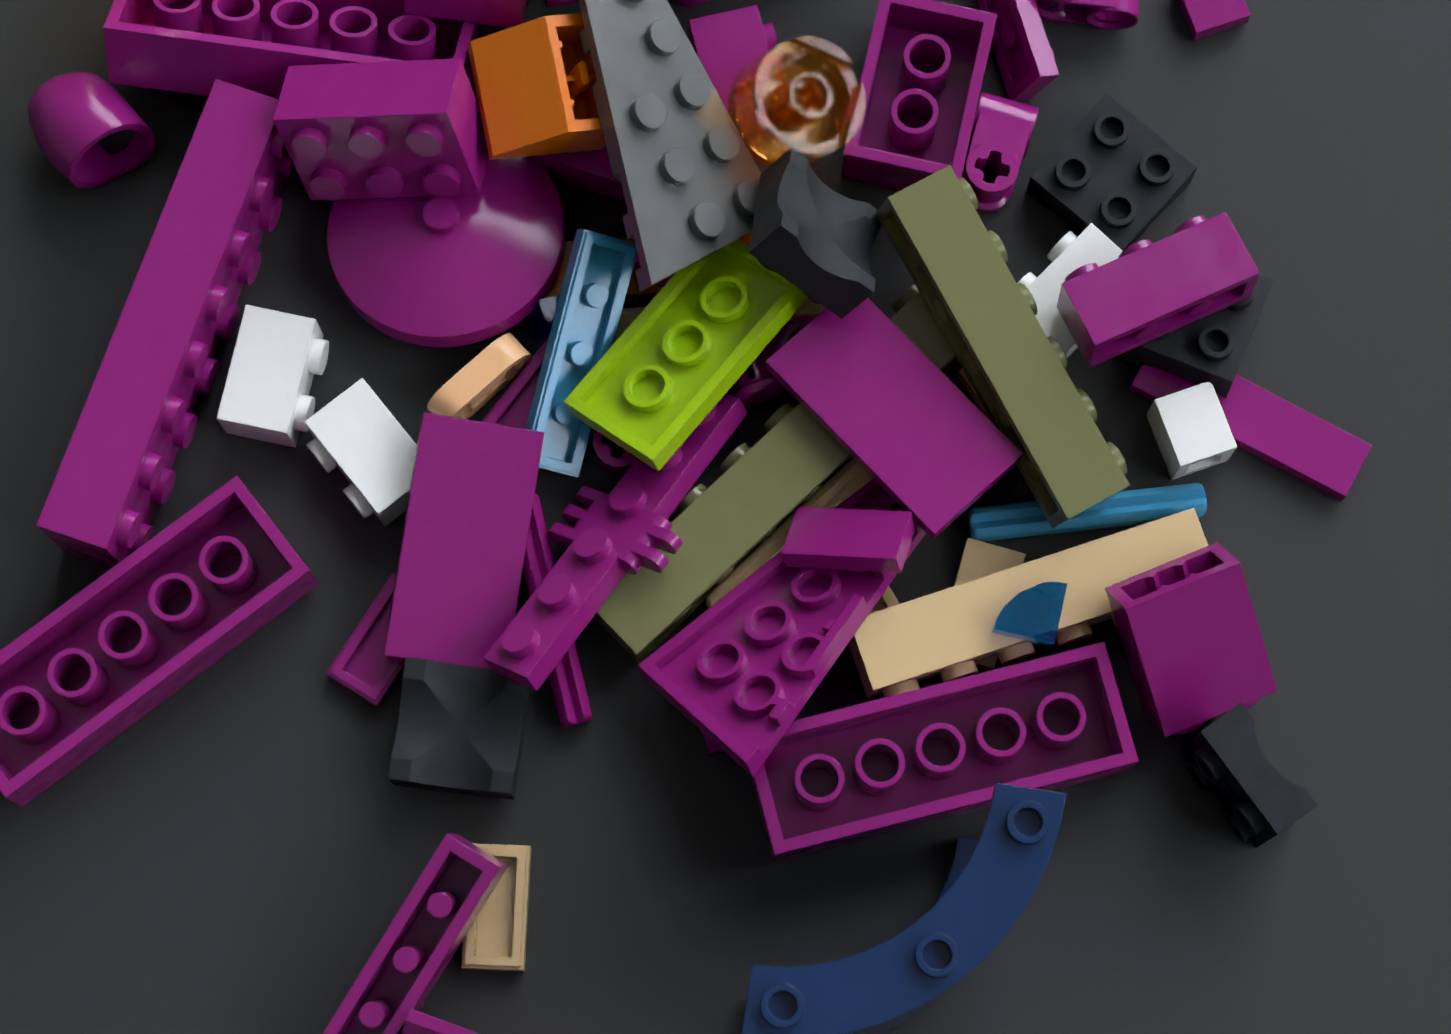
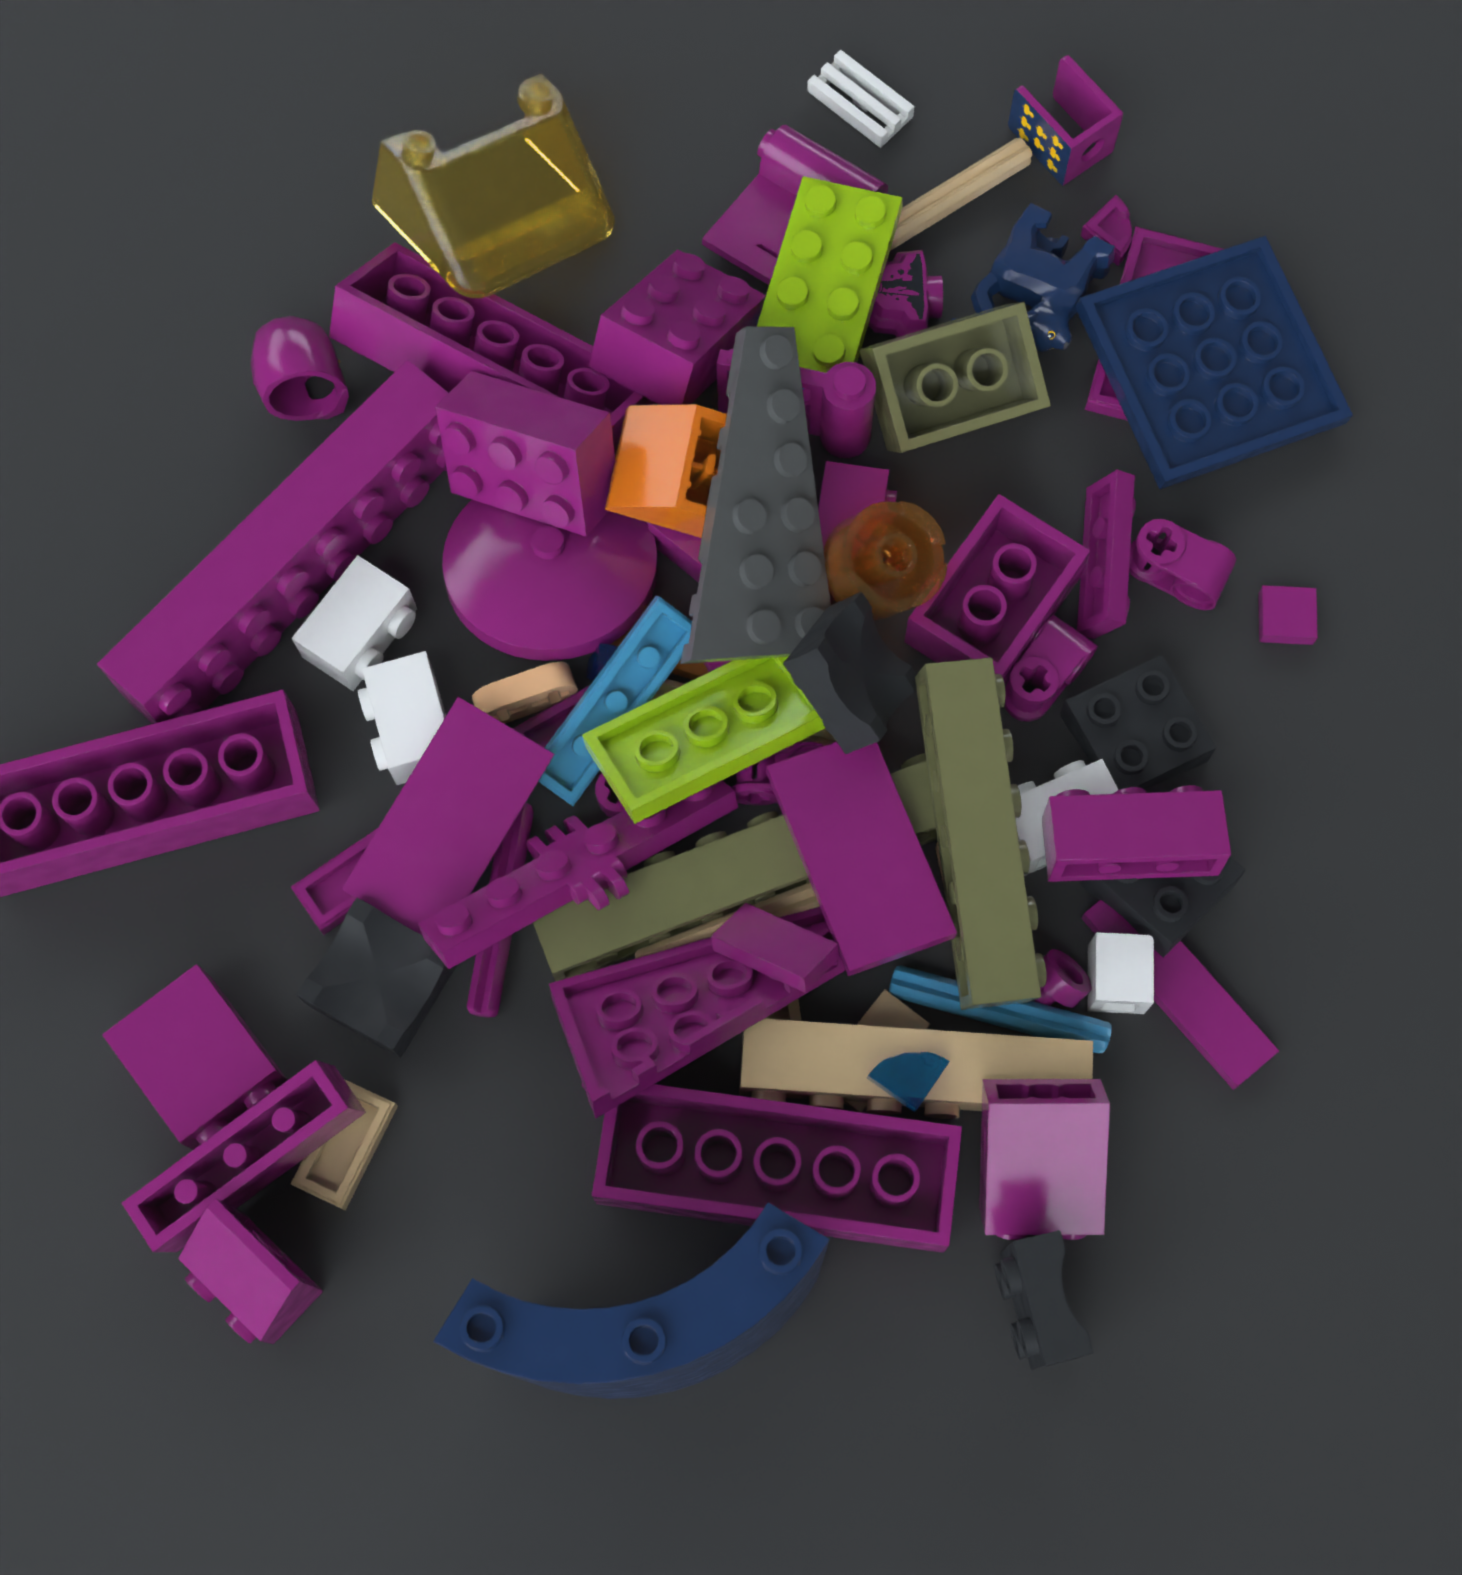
camera: 25 degrees right, 5 degrees down
(311, 883) = (194, 1057): none -> magenta brick
(1143, 458) = (1064, 980): none -> magenta tile

